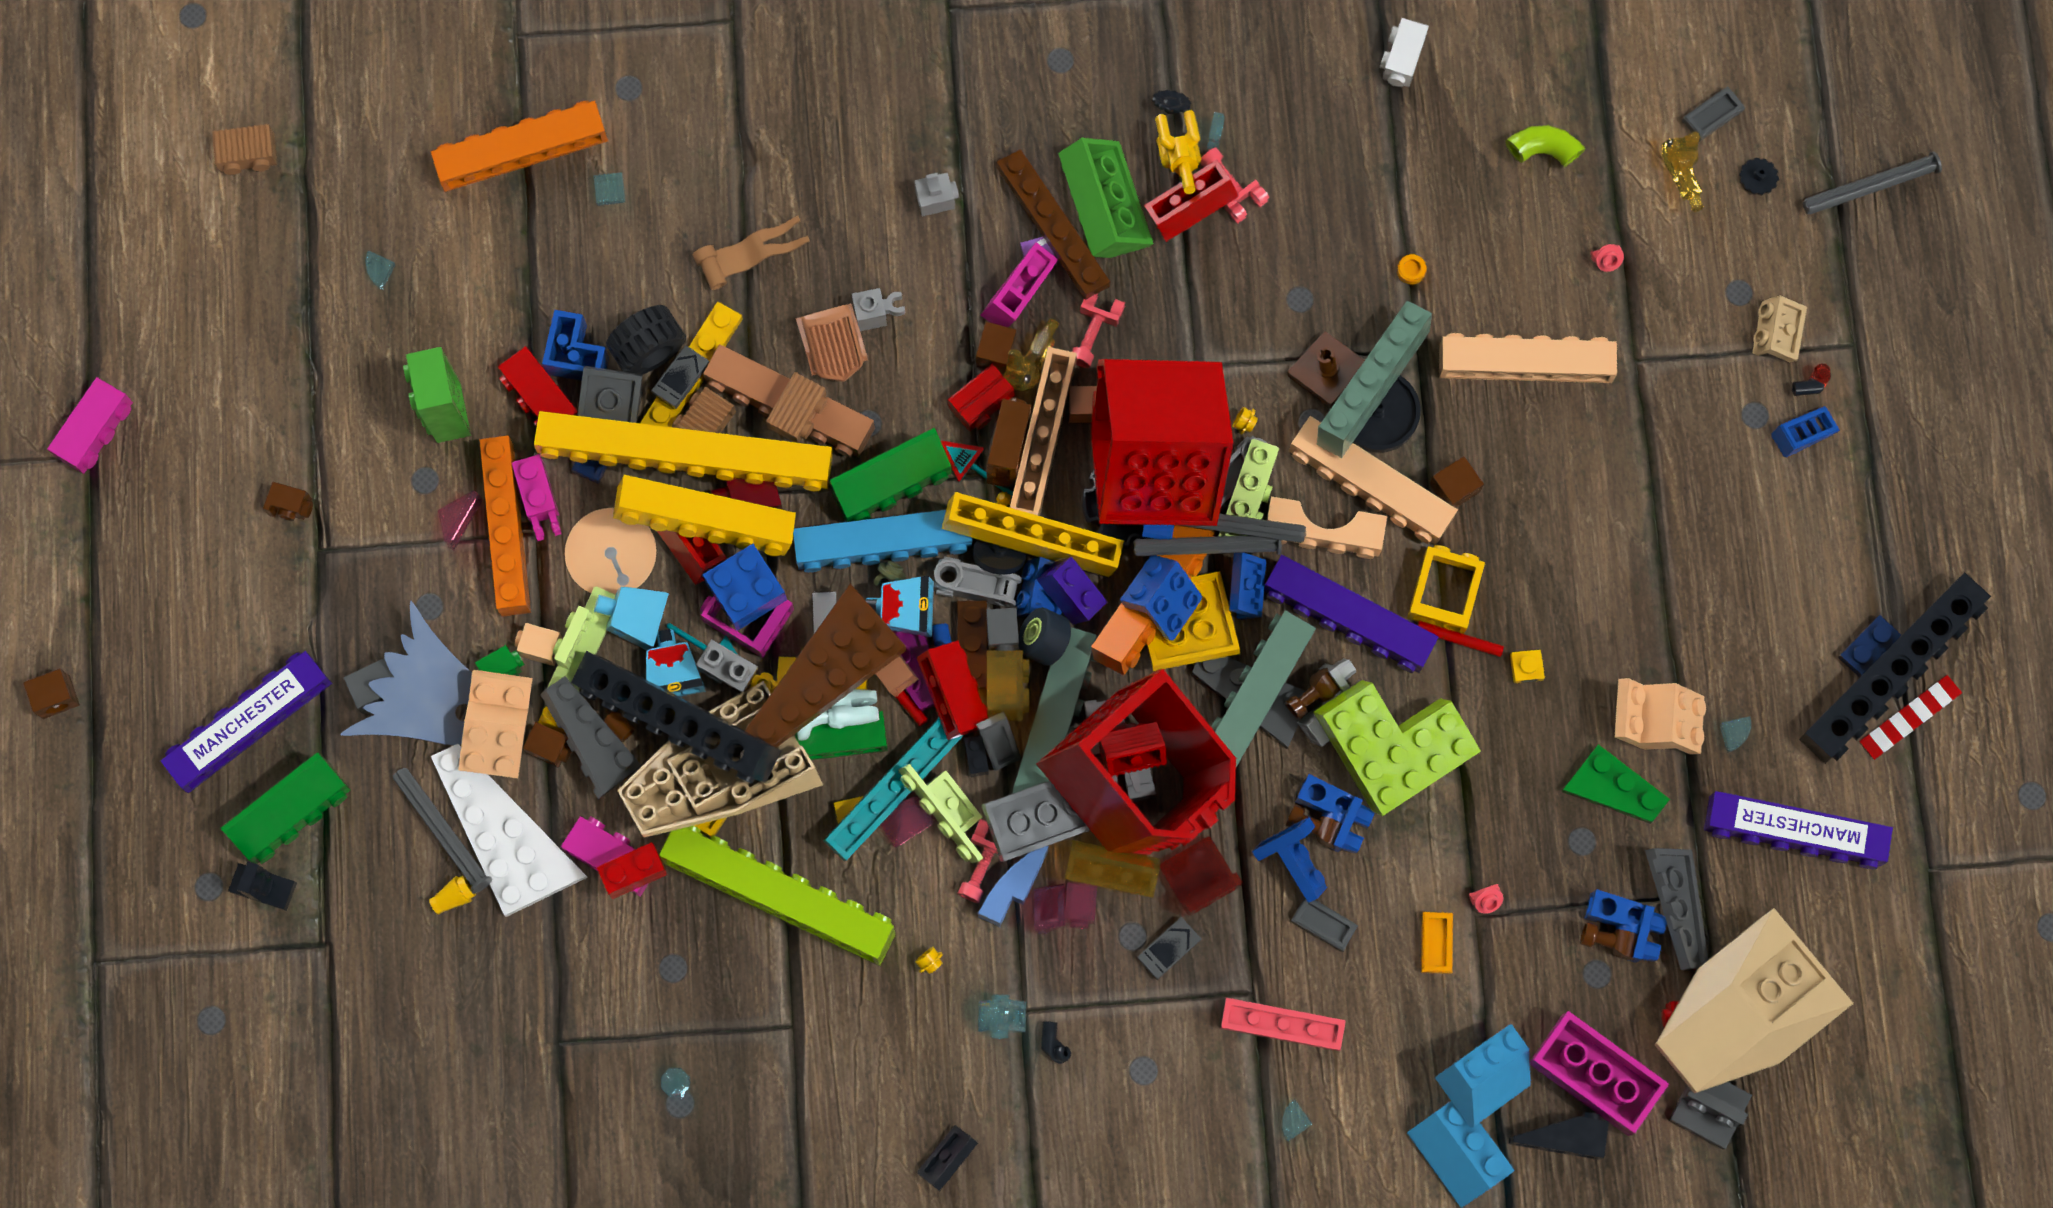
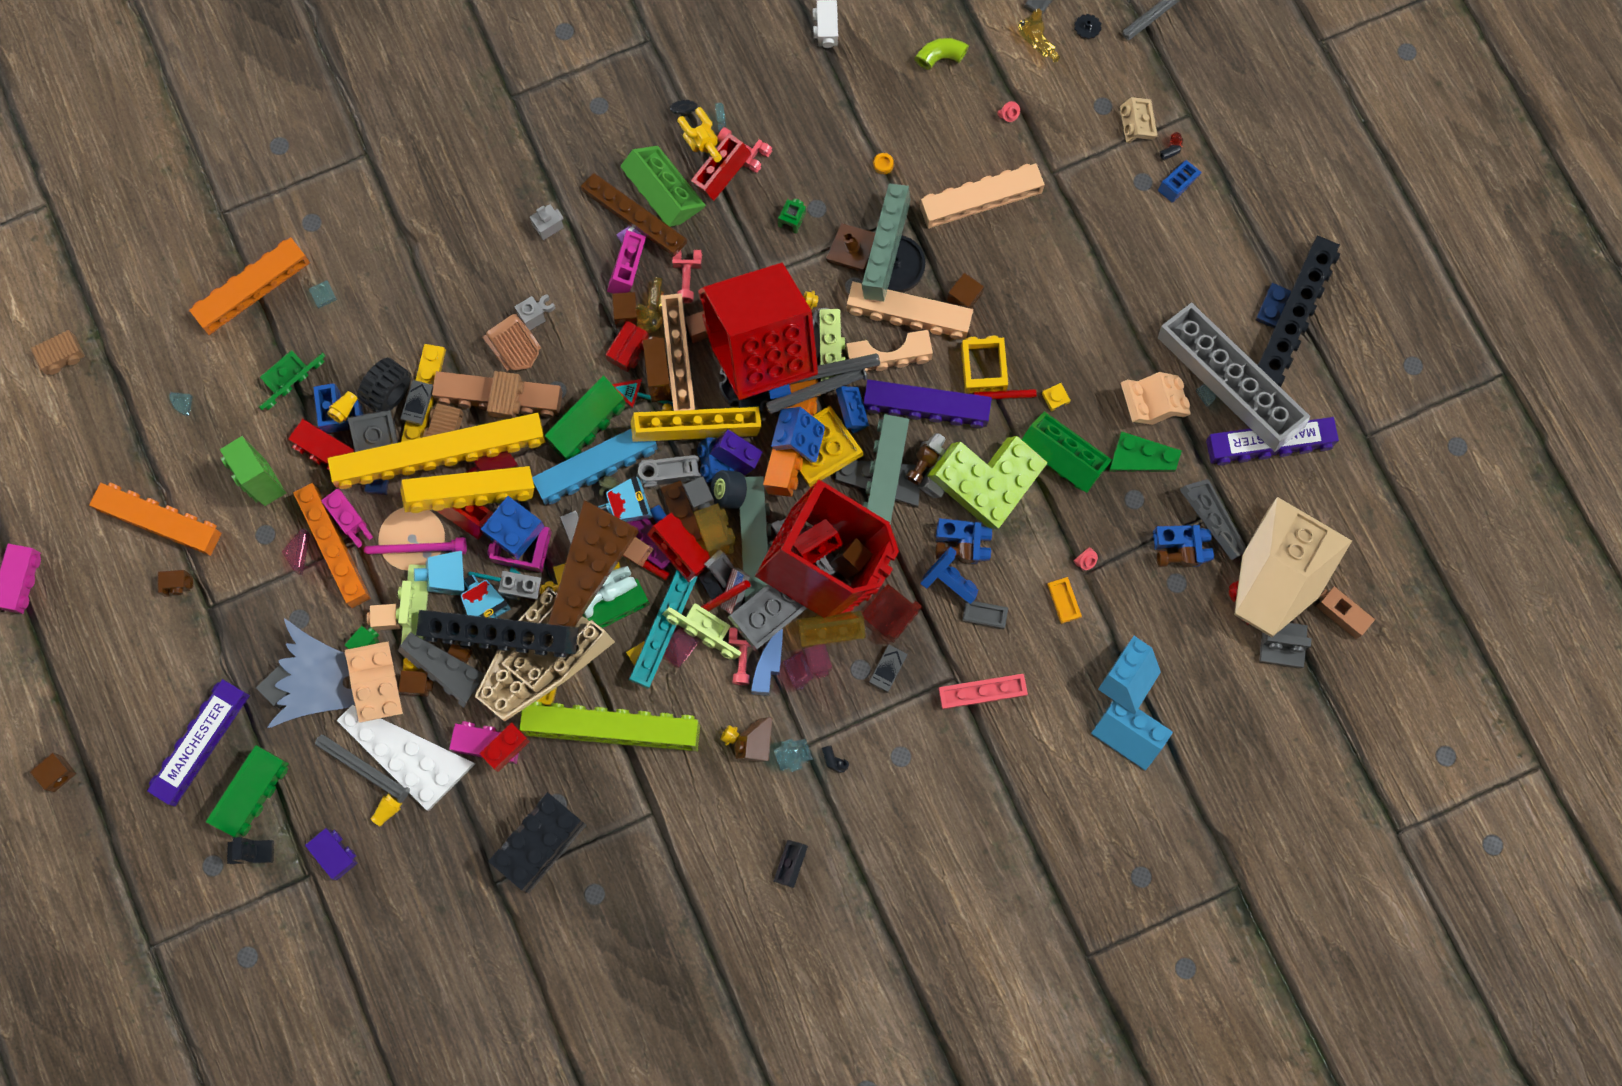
camera: 20 degrees left, 0 degrees up
(293, 411) = (155, 519): none -> orange brick
(364, 927) = (331, 853): none -> dark purple brick
(524, 278) = (285, 373): none -> green bracket
(580, 351) = (342, 407): none -> yellow cone
(630, 1010) = (537, 843): none -> black piece
(663, 583) = (458, 544): none -> dark pink piece
(675, 1082) = (586, 881): clear light blue tile -> none
(745, 254) = (431, 306): medium nougat flag -> none
(958, 981) = (755, 741): none -> slope
(990, 776) = (726, 595): none -> red bar
(997, 558) = (677, 448): black piece -> none
(1004, 772) = (736, 577): none -> tile
(1171, 786) = (851, 558): none -> reddish brown piece
(1264, 296) = (792, 214): none -> green window
(1294, 1121) = (1014, 753): clear light blue tile -> none
(1512, 745) = (1066, 452): none -> green slope
(1576, 1137) = (1205, 694): black slope -> none
(1598, 1073) = (1203, 647): dark pink brick -> none
(1775, 725) = (1233, 377): none -> light grey brick
(1808, 1095) = (1344, 612): none -> nougat brick
(1910, 717) = (1316, 342): sticker -> none

